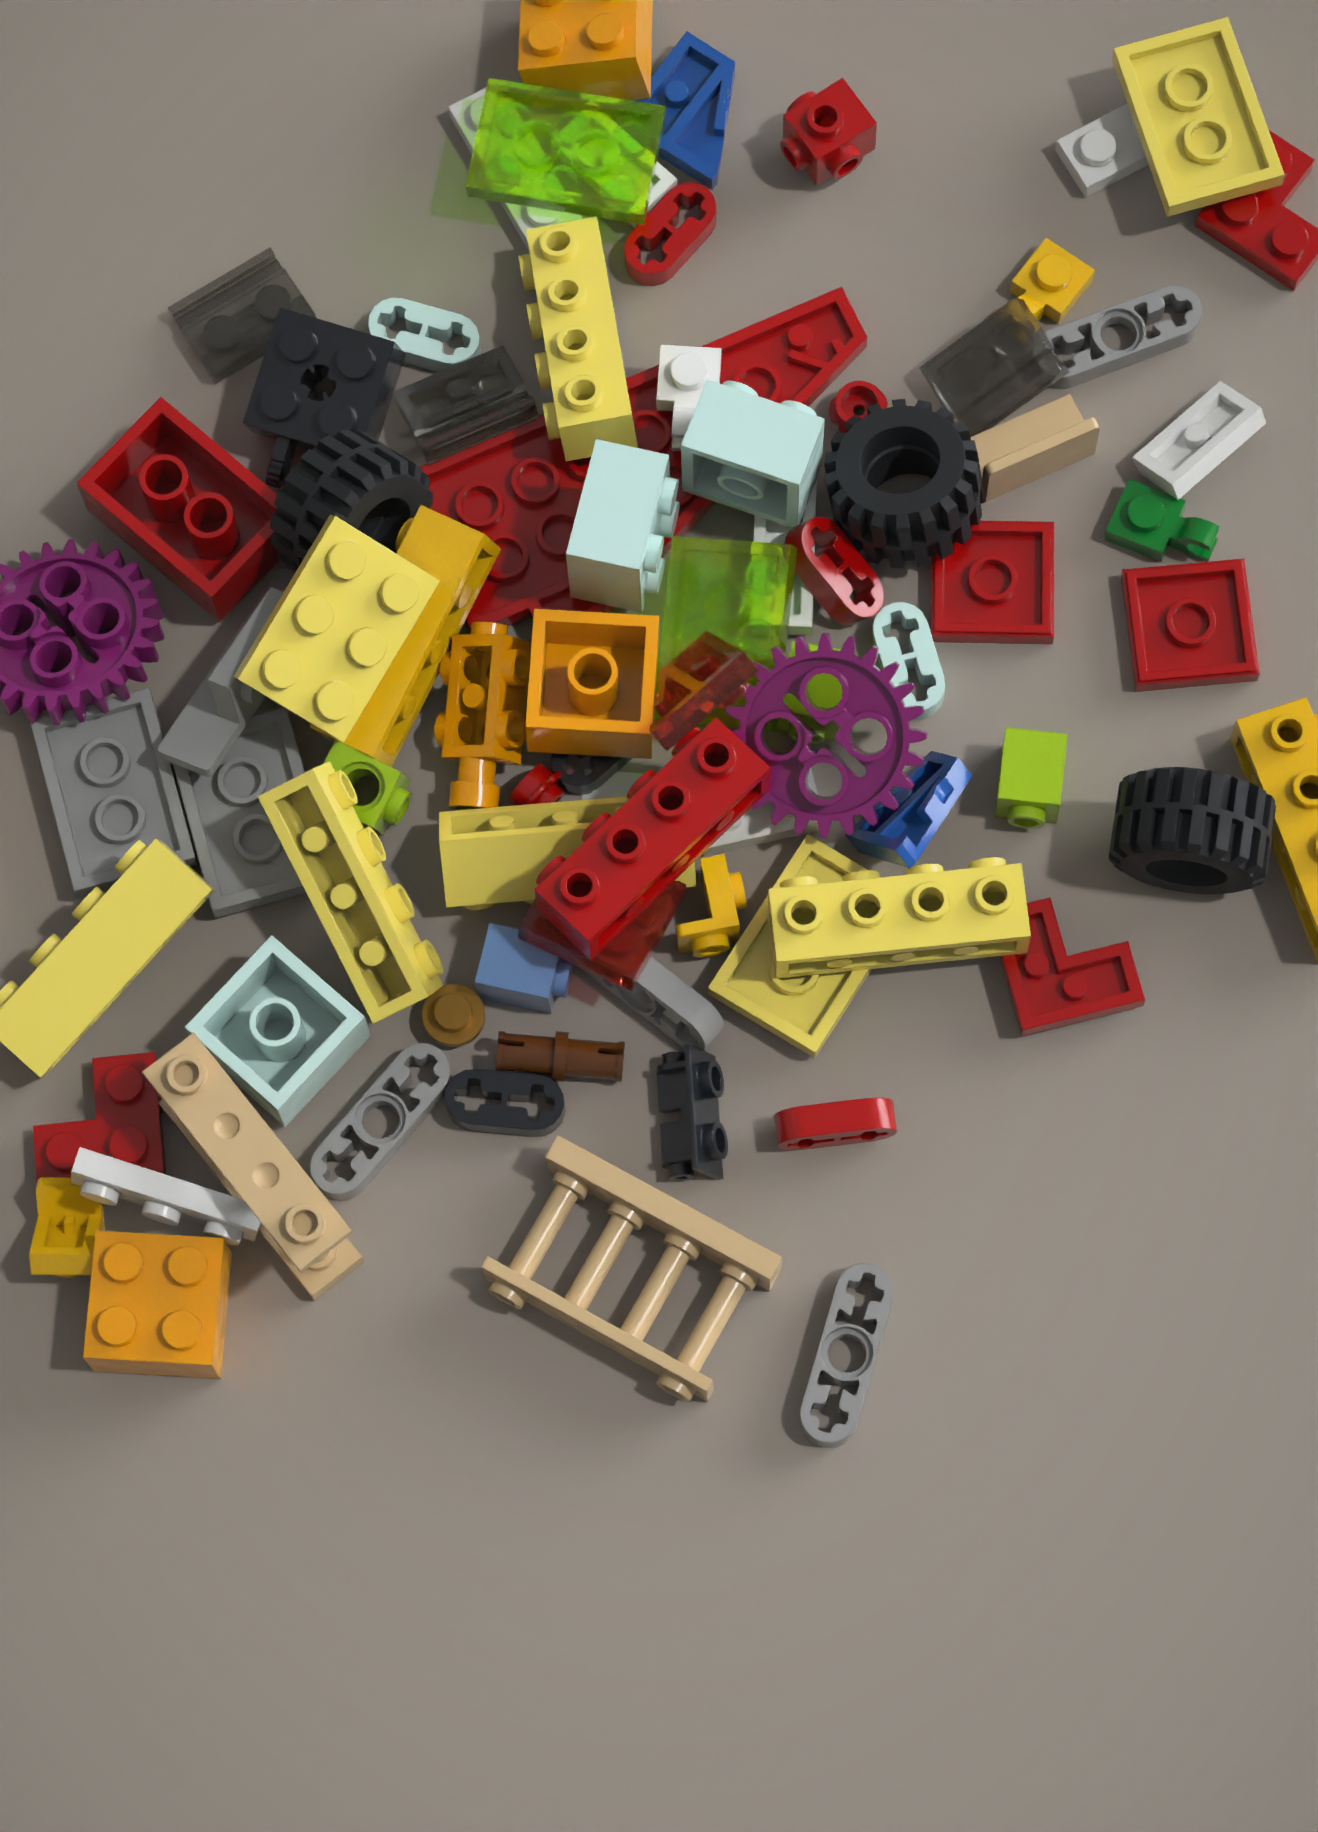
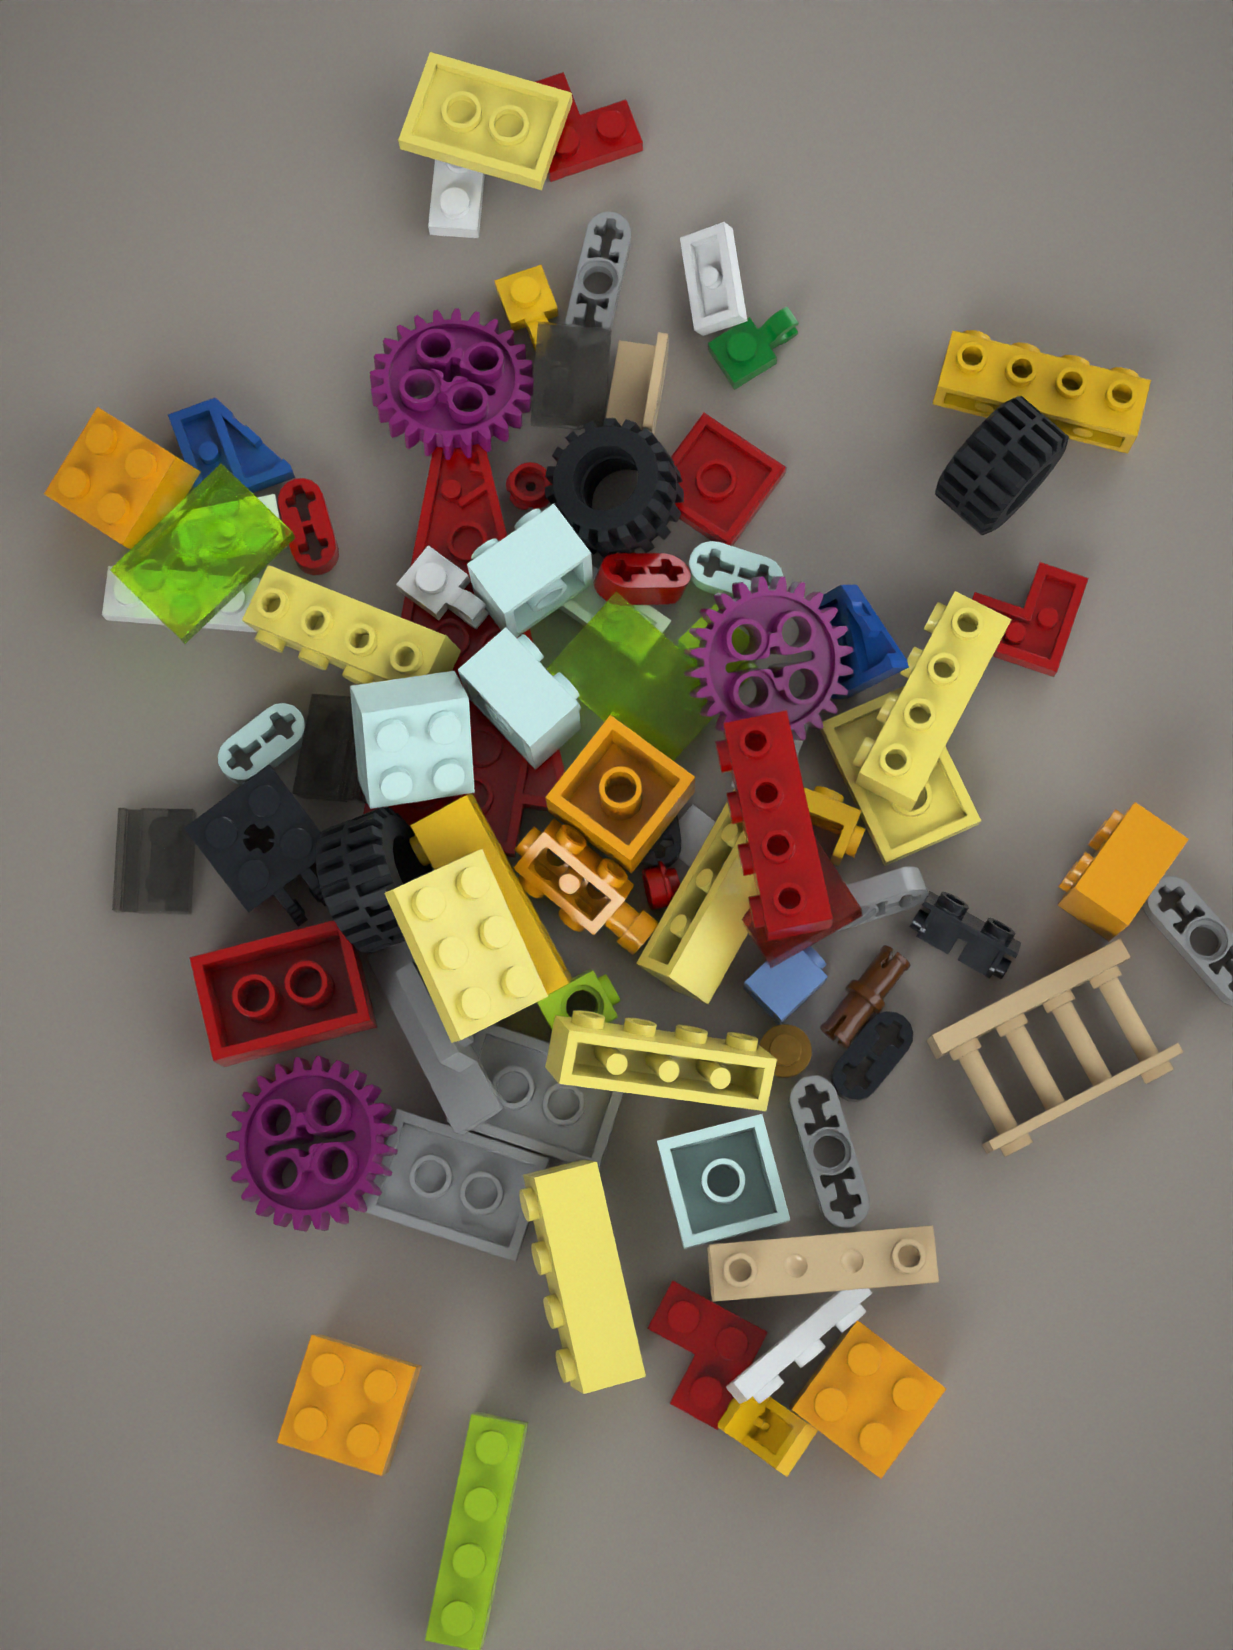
camera: 55 degrees left, 5 degrees up
(505, 450) = (412, 739): none -> light aqua brick
(696, 683) = (682, 720): clear red wing -> none
(827, 132) = (315, 370): red brick -> none
(835, 1123) = (1038, 841): red beam -> none
(852, 1212) = (1122, 872): none -> light orange brick
(861, 274) = (452, 383): none -> magenta gear
(1031, 777) = (879, 548): lime brick -> none
(1189, 625) = (836, 374): red tile -> none

